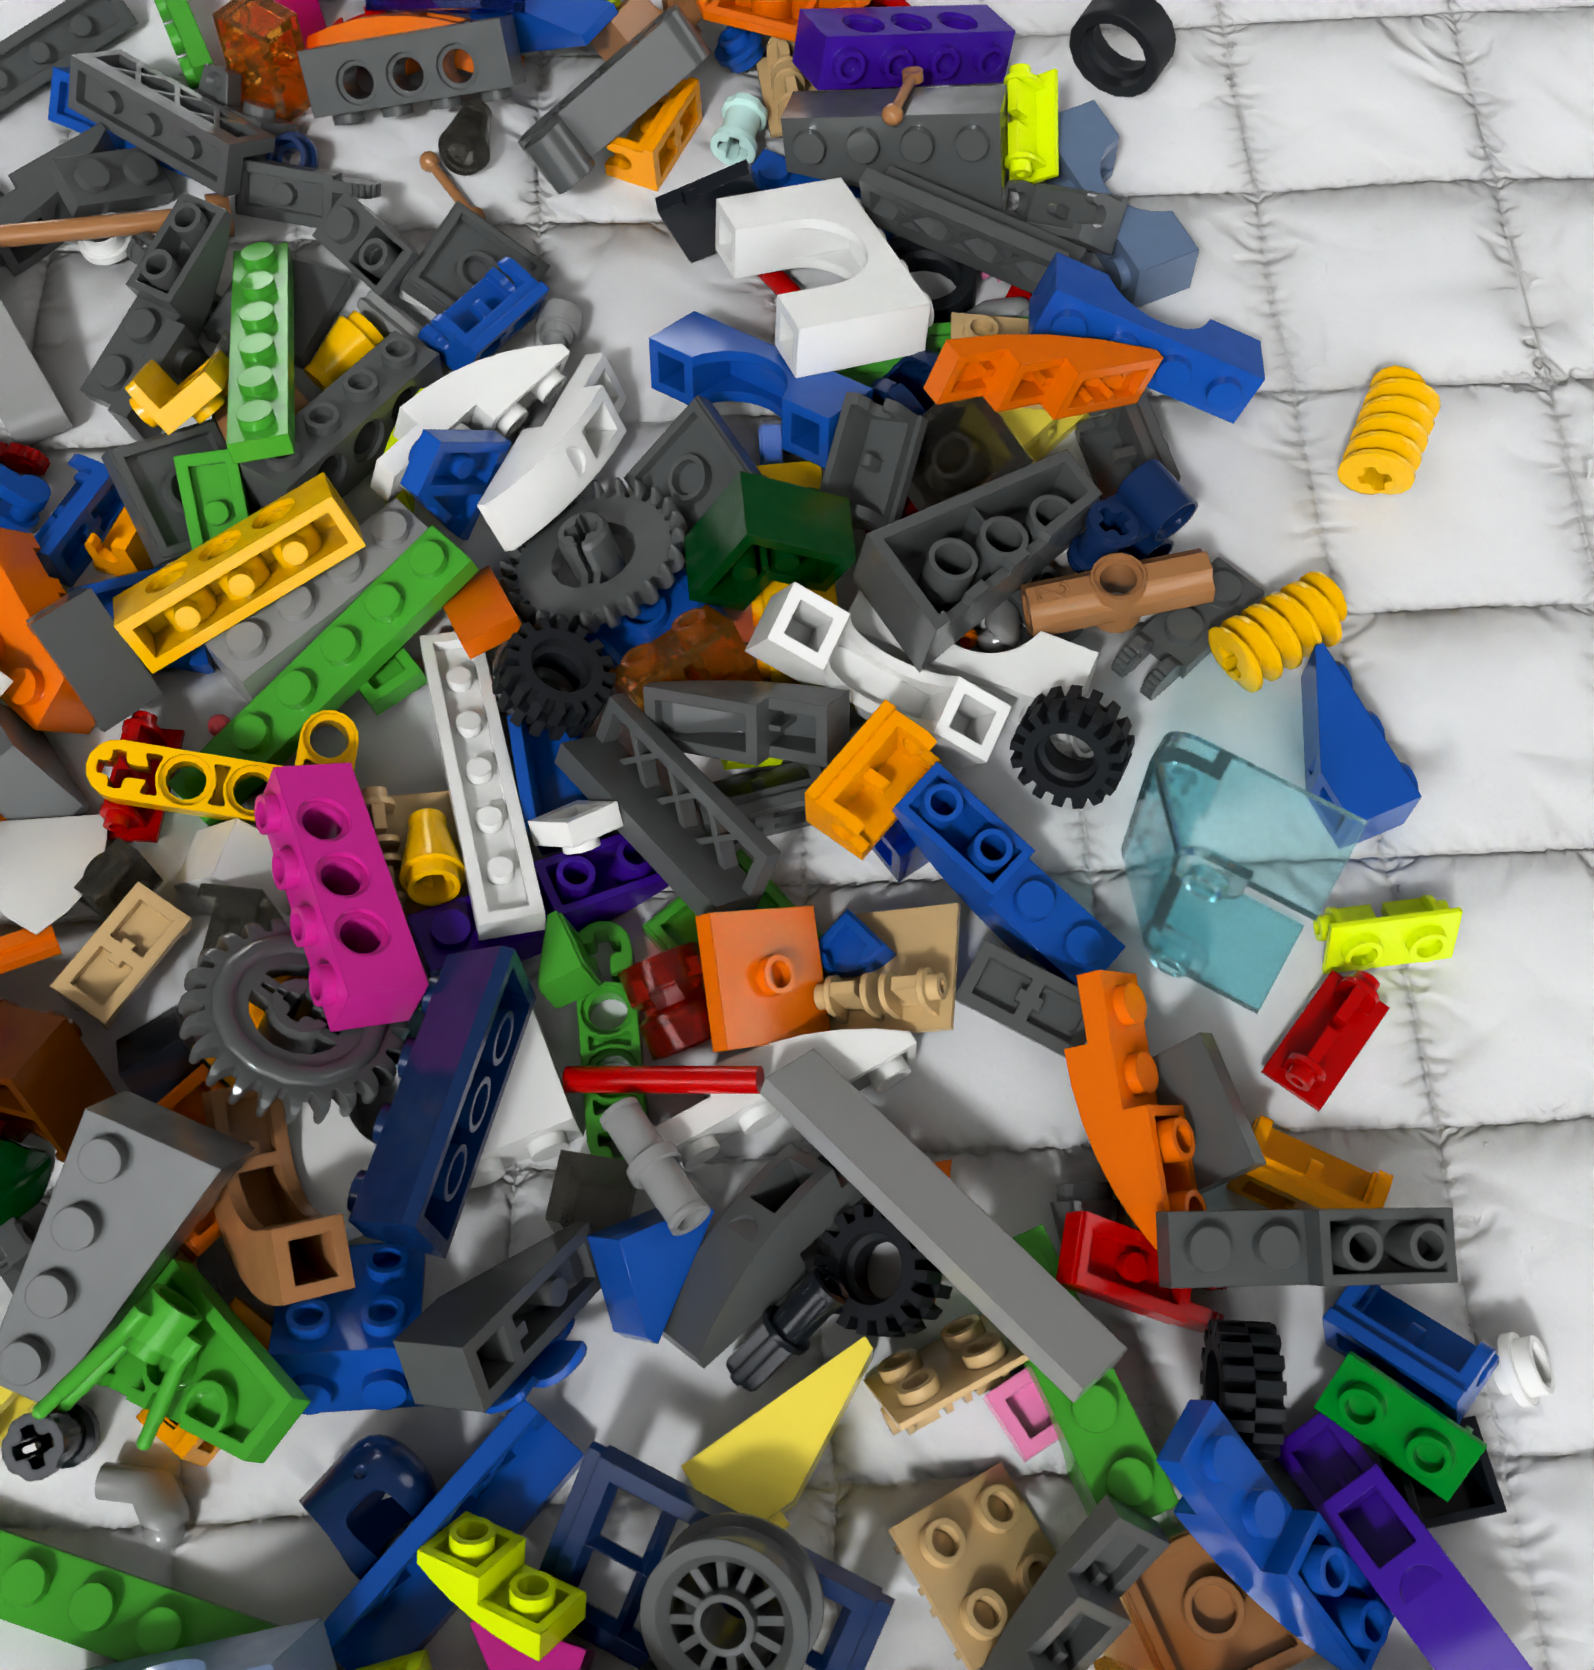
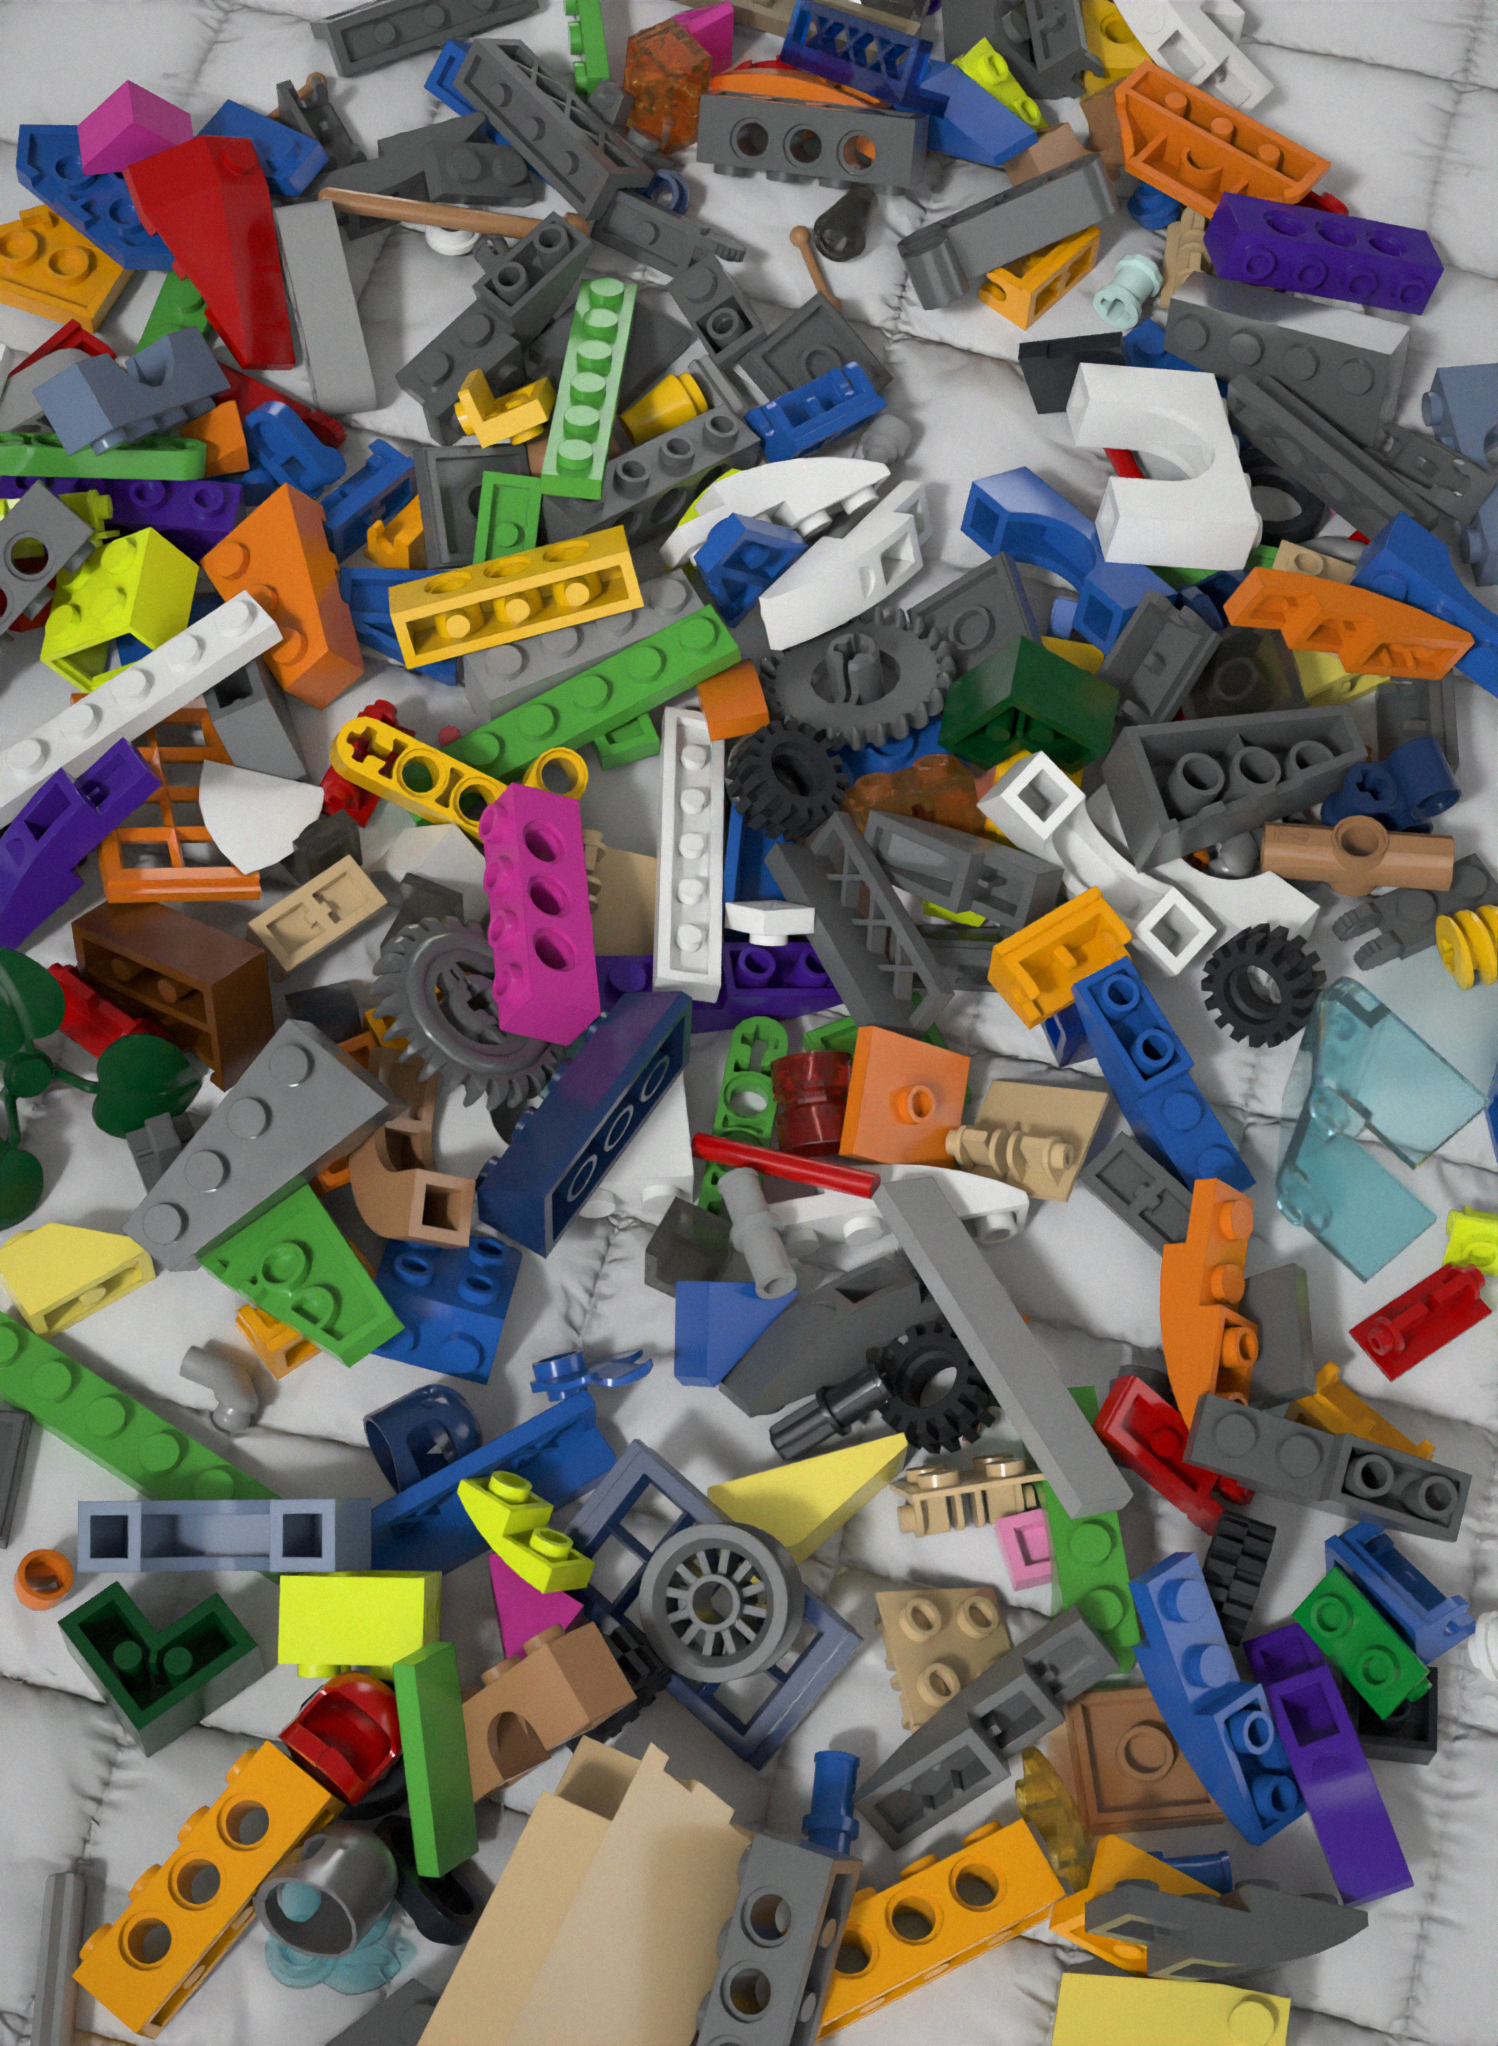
camera: 10 degrees right, 5 degrees down
(48, 1458) = (143, 1295): black bush -> none
(94, 657) = (361, 638): dark grey hinge -> none
(150, 1330) = (285, 1228): bright green plant -> none
(430, 861) = (625, 913): yellow cone -> none
(497, 1323) = (581, 1320): dark grey slope -> none
(565, 965) = (722, 1044): bright green slope -> none
(852, 948) = (995, 1107): blue tile -> none
(892, 113) = (1284, 325): medium nougat hinge -> none
(1032, 124) = (1428, 376): neon yellow hinge -> none

